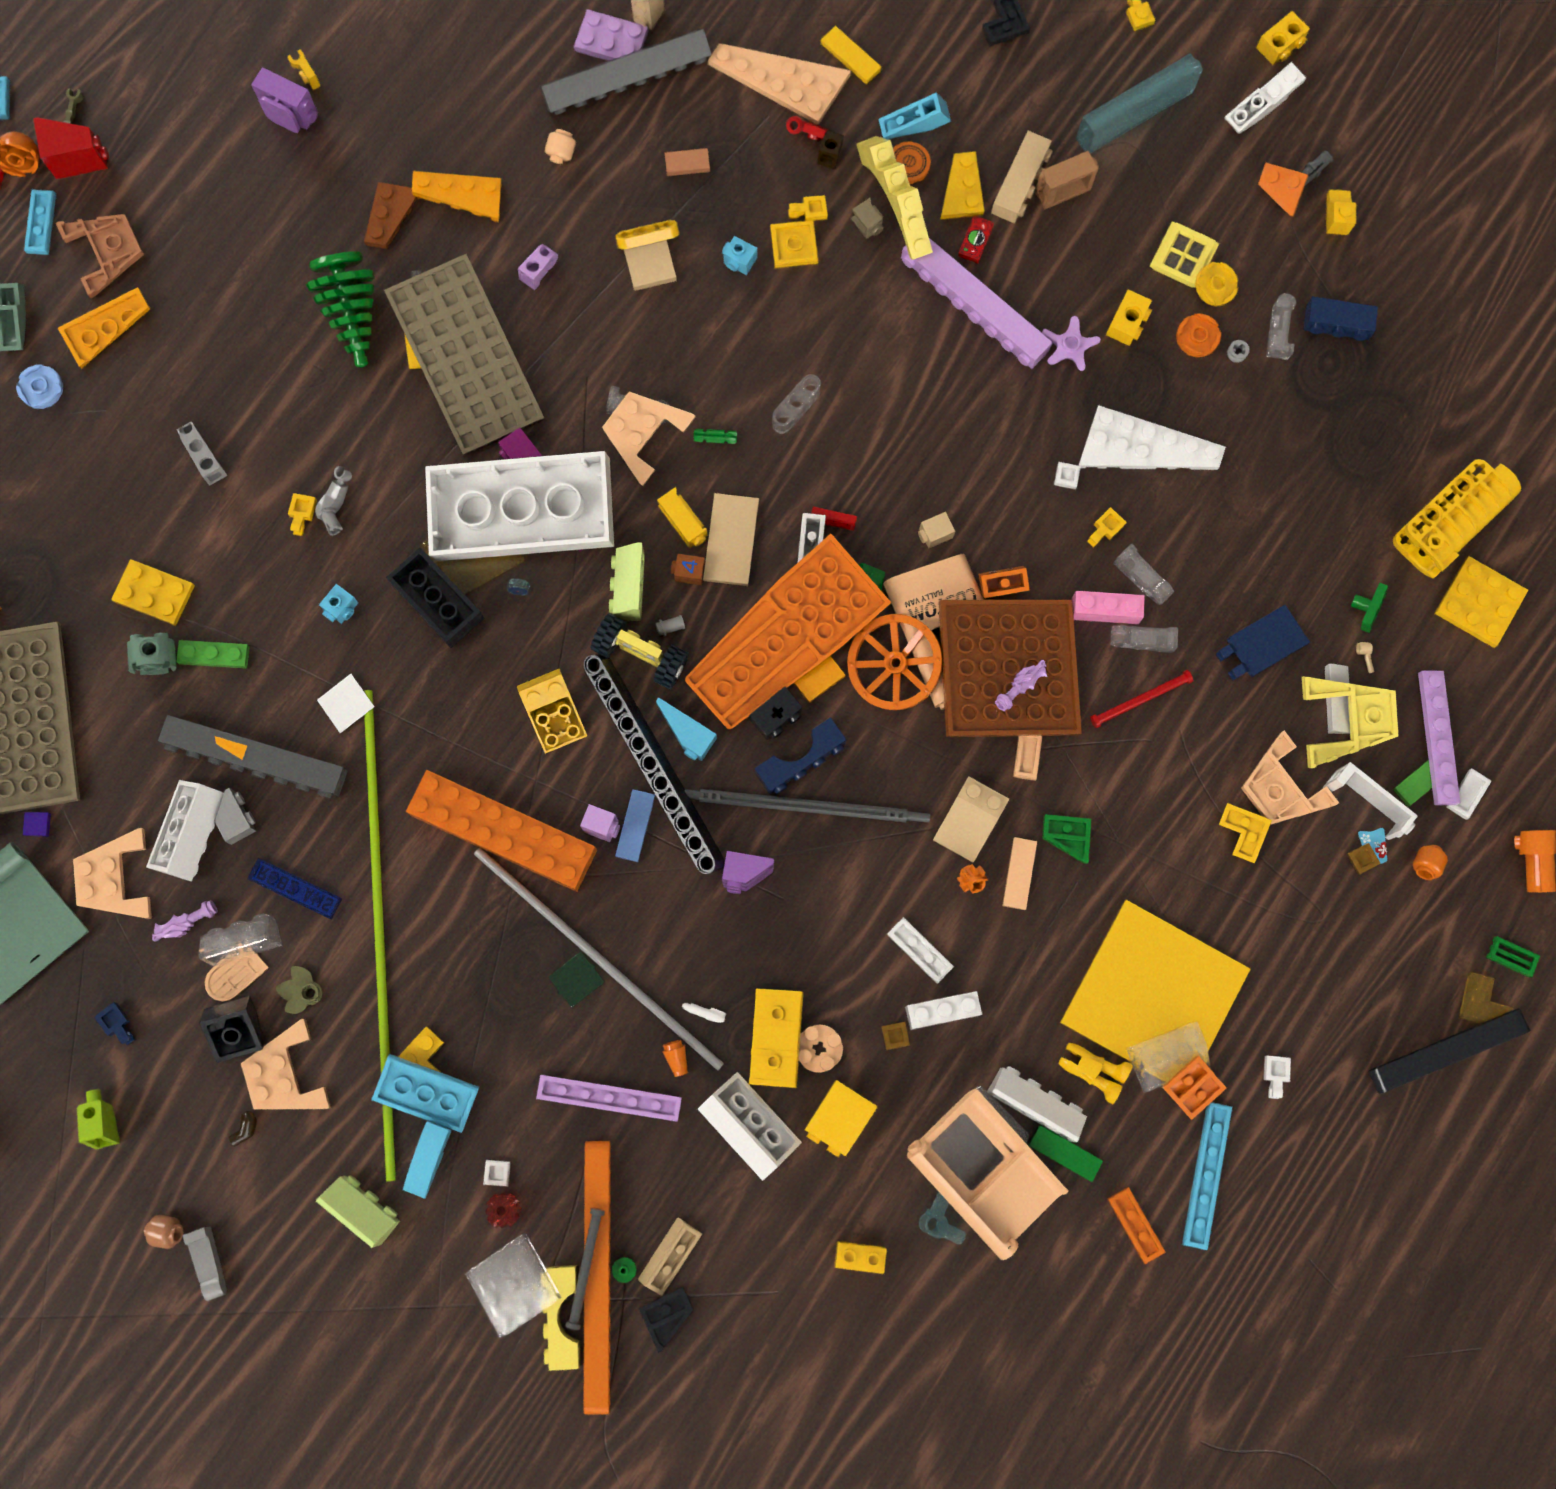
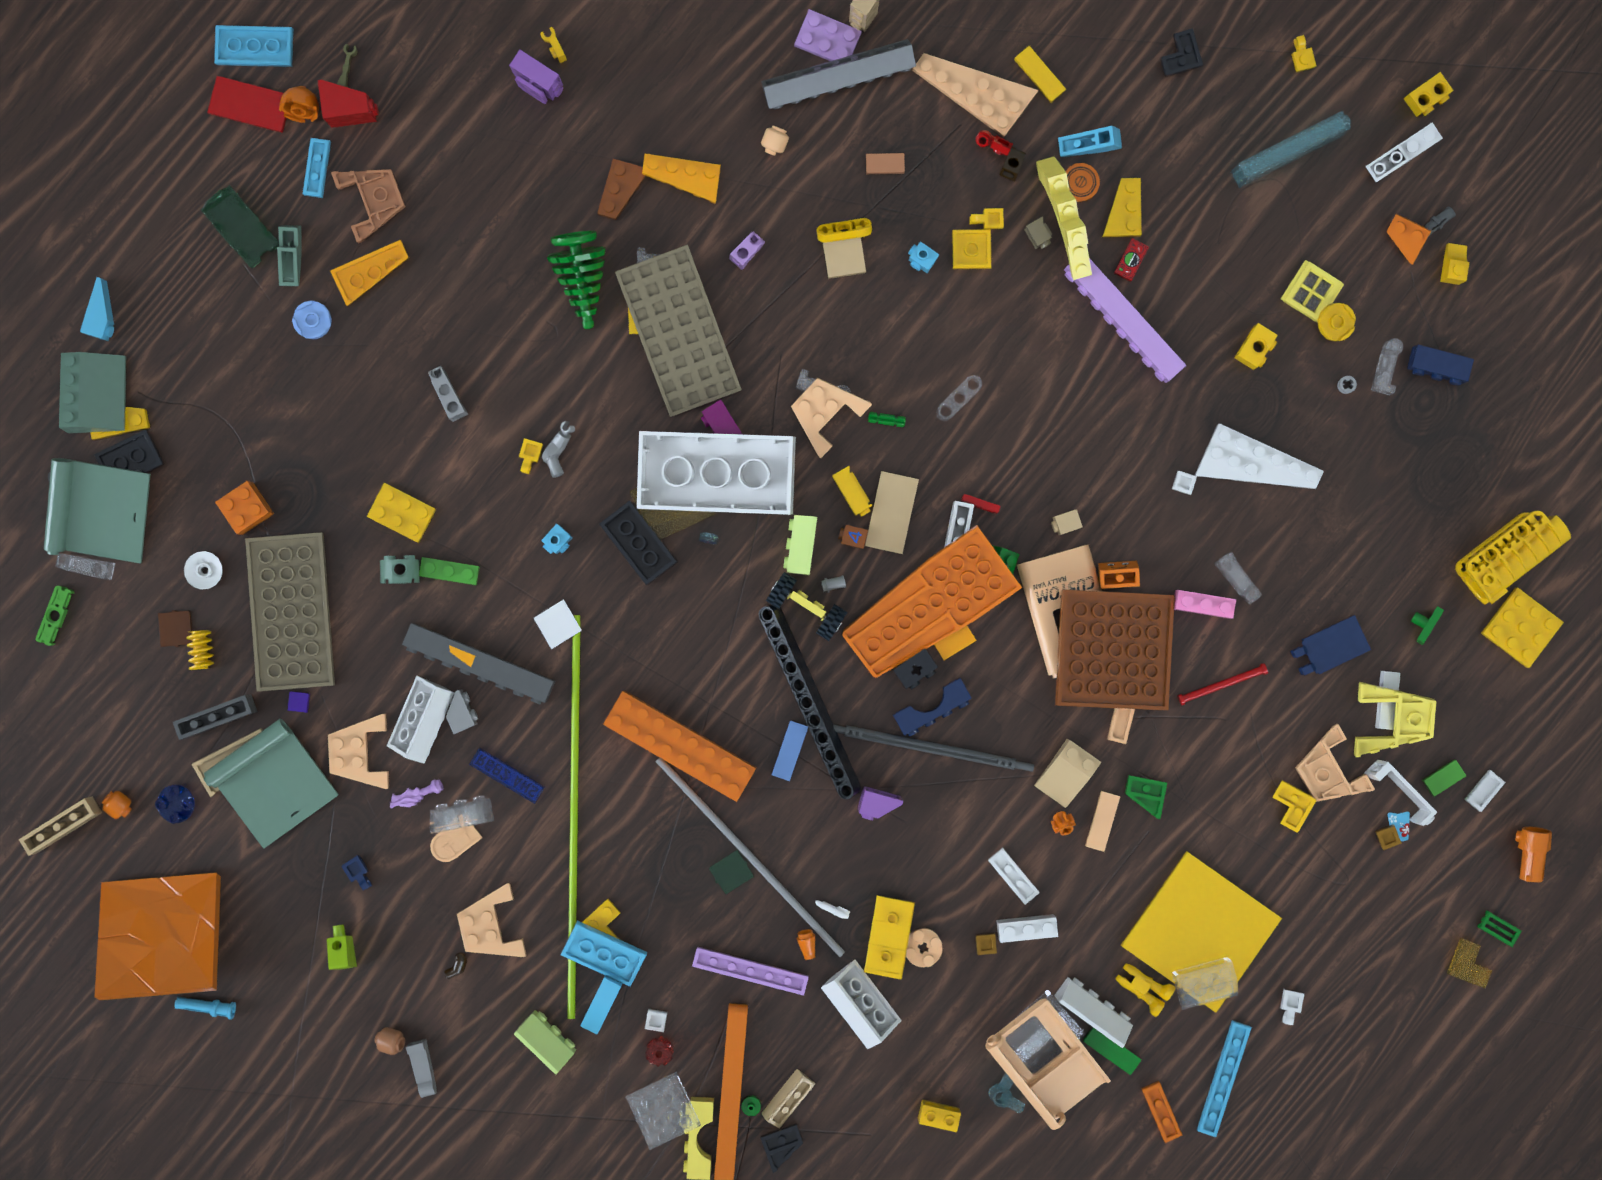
camera: 10 degrees right, 10 degrees up
(232, 1029) = (451, 886): black slope -> none
(296, 990) = (504, 859): olive plate -> none
(551, 711) = (728, 647): yellow slope -> none
(573, 1322) = (721, 1104): dark grey bar -> none
(600, 823) = (762, 749): lavender piece -> none
(690, 734) = (842, 680): medium azure slope -> none
(840, 1119) = (934, 1006): yellow slope -> none
(891, 657) = (1015, 639): orange wheel -> none
(1021, 177) = (1178, 206): tan brick -> none
(1024, 680) = (1126, 663): lavender piece -> none
(1066, 179) = (1217, 215): medium nougat window -> none
(1070, 344) = (1201, 367): lavender animal -> none
(1107, 525) = (1213, 531): yellow plate -> none
(1145, 638) = (1232, 633): clear leg -> none
(1194, 1087) = (1223, 1010): orange slope -> none
(1198, 335) = (1314, 366): orange tile -> none
(1365, 649) = (1418, 660): tan hand -> none
(1430, 862) = (1443, 846): orange head -> none
(1439, 738) = (1467, 742): lavender plate -> none
(1449, 1051) = (1433, 1001): black beam -> none

